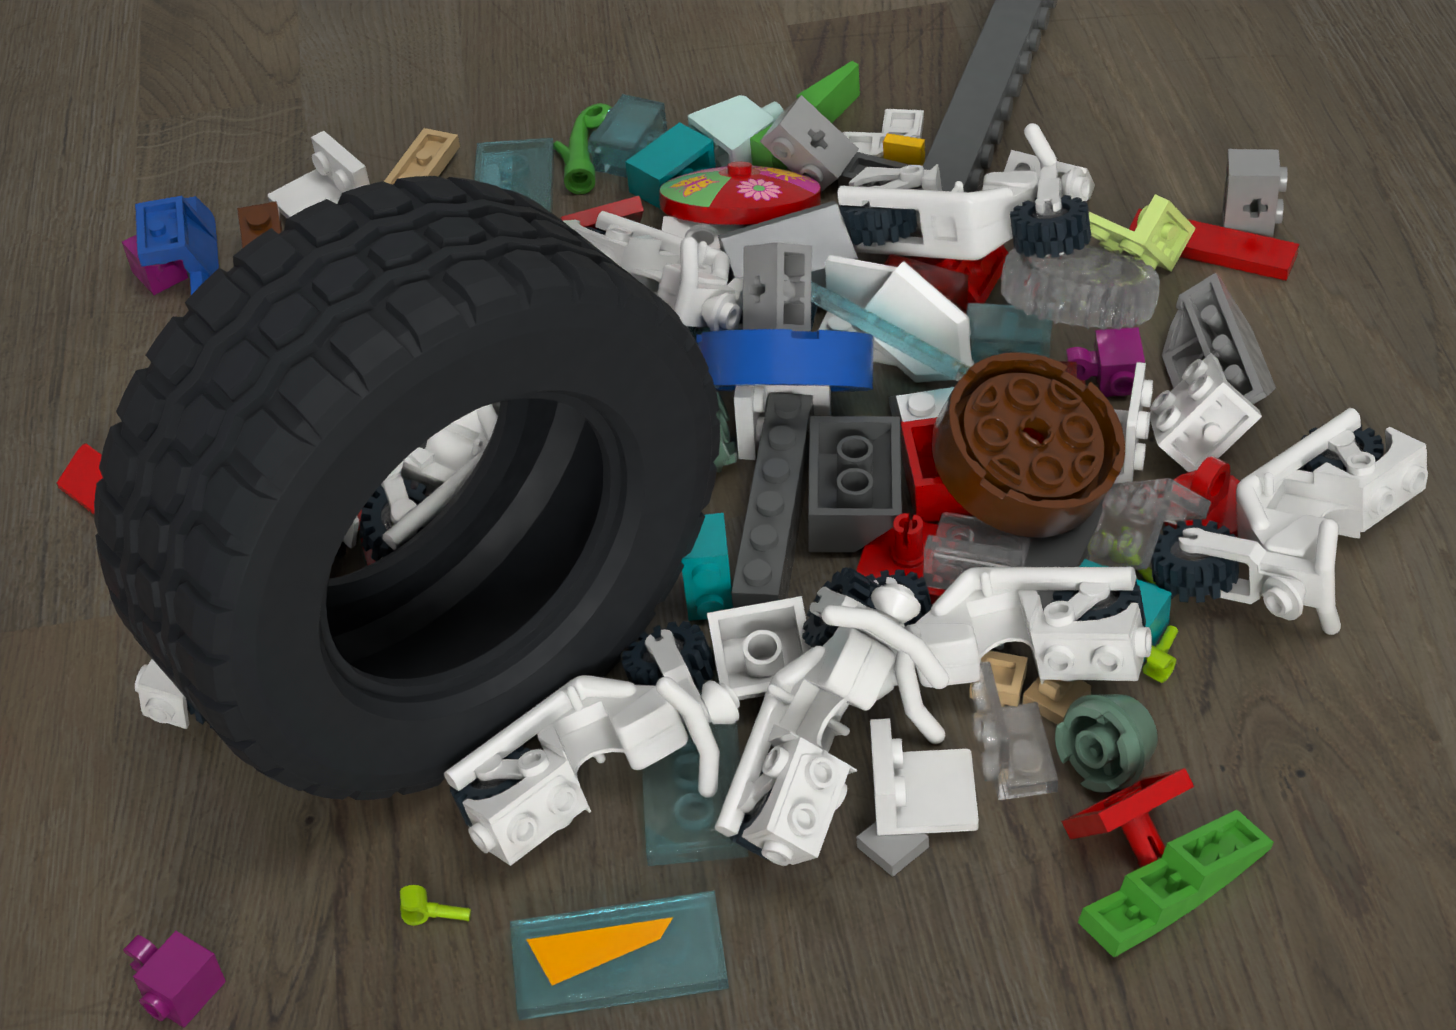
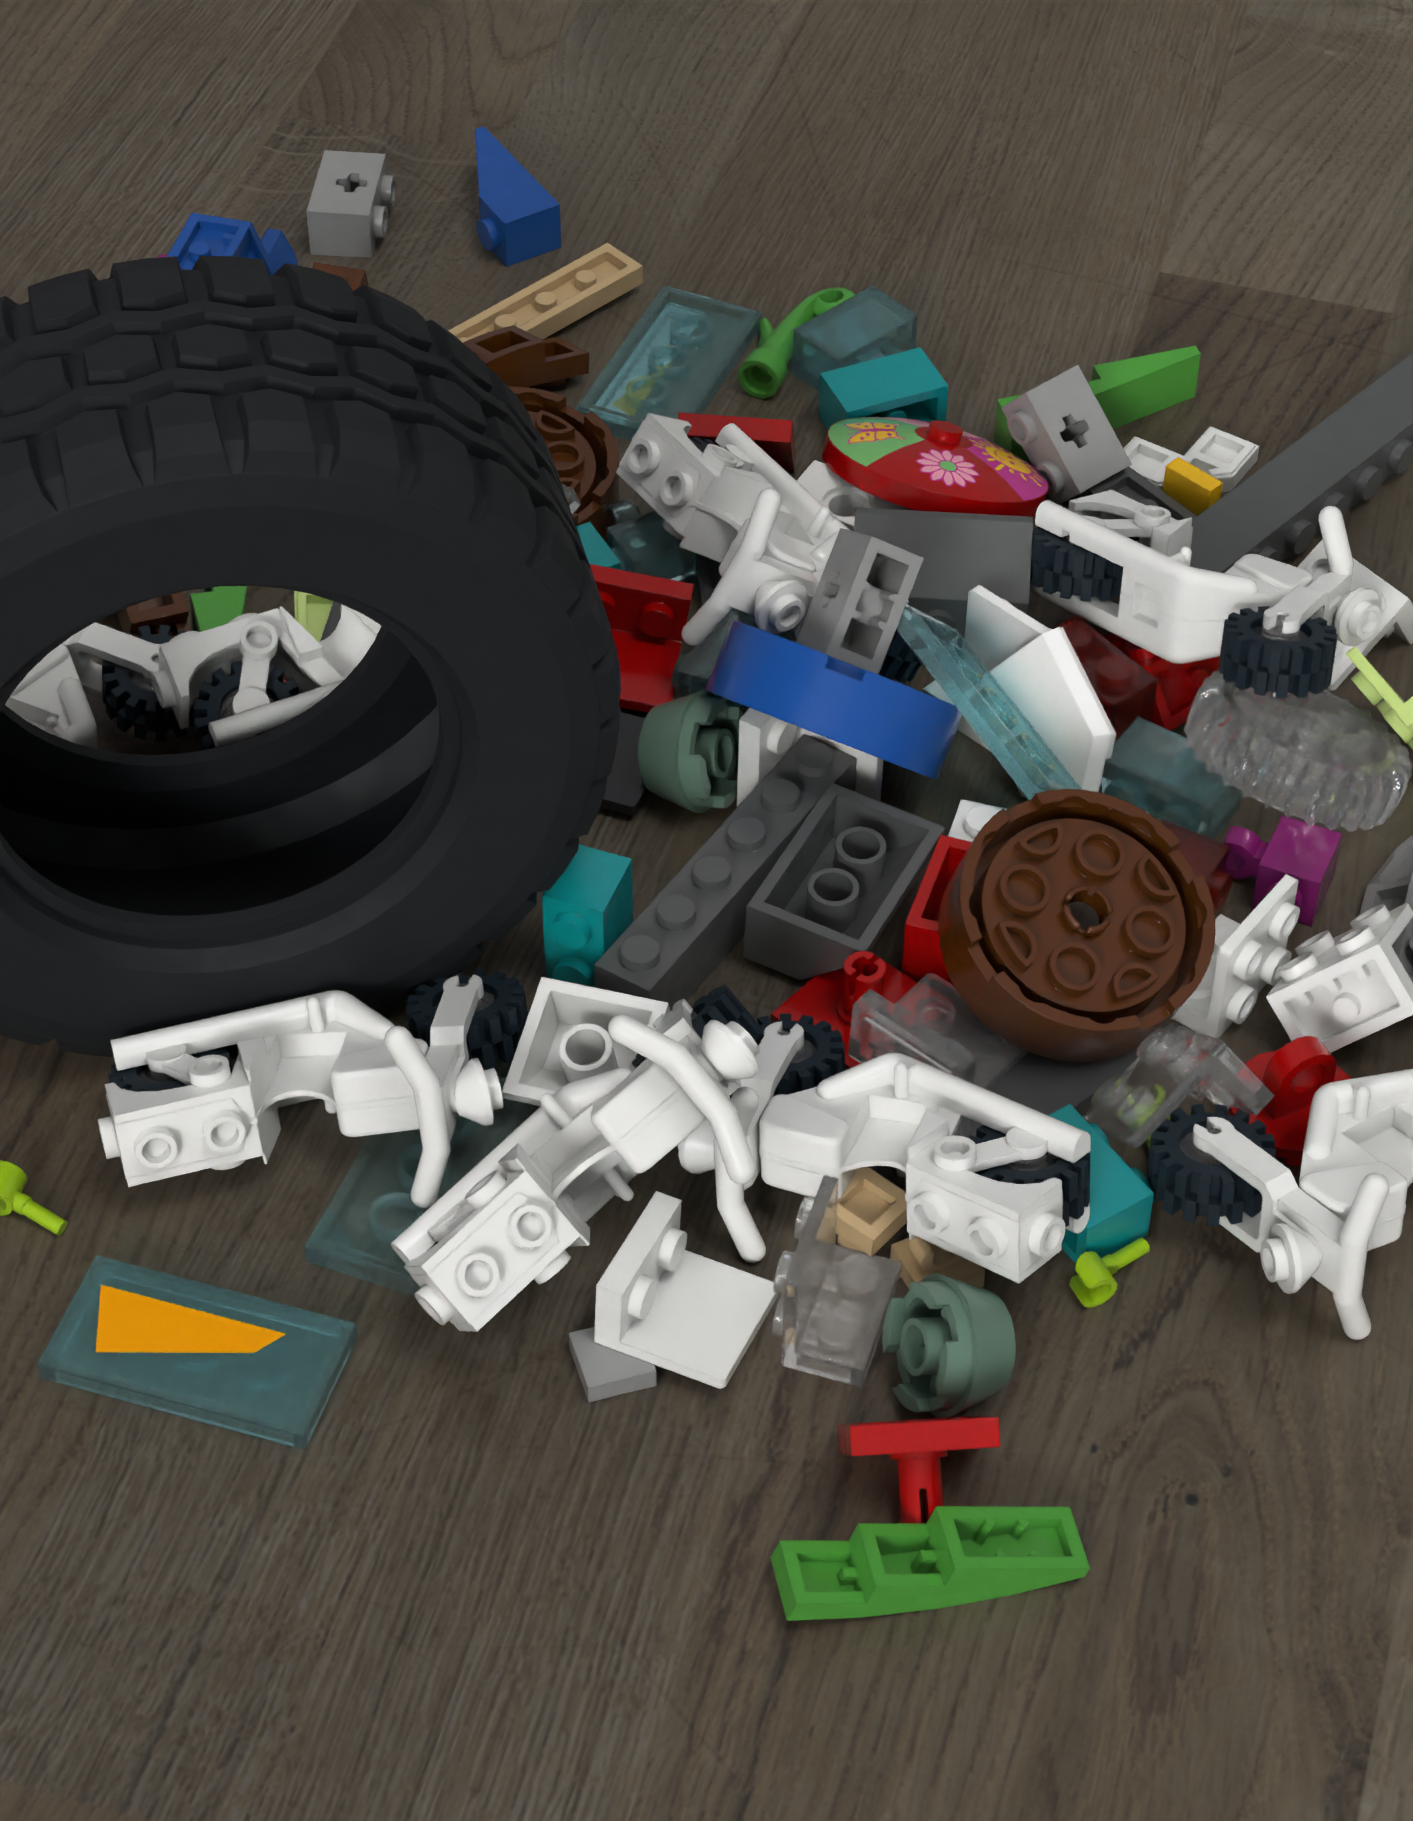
camera: 20 degrees right, 0 degrees up
(230, 163) = (349, 204): none -> light grey brick
(334, 174) = (444, 282): white bracket -> none
(348, 123) = (515, 209): none -> blue slope
(732, 125) = (984, 372): light aqua torso -> none

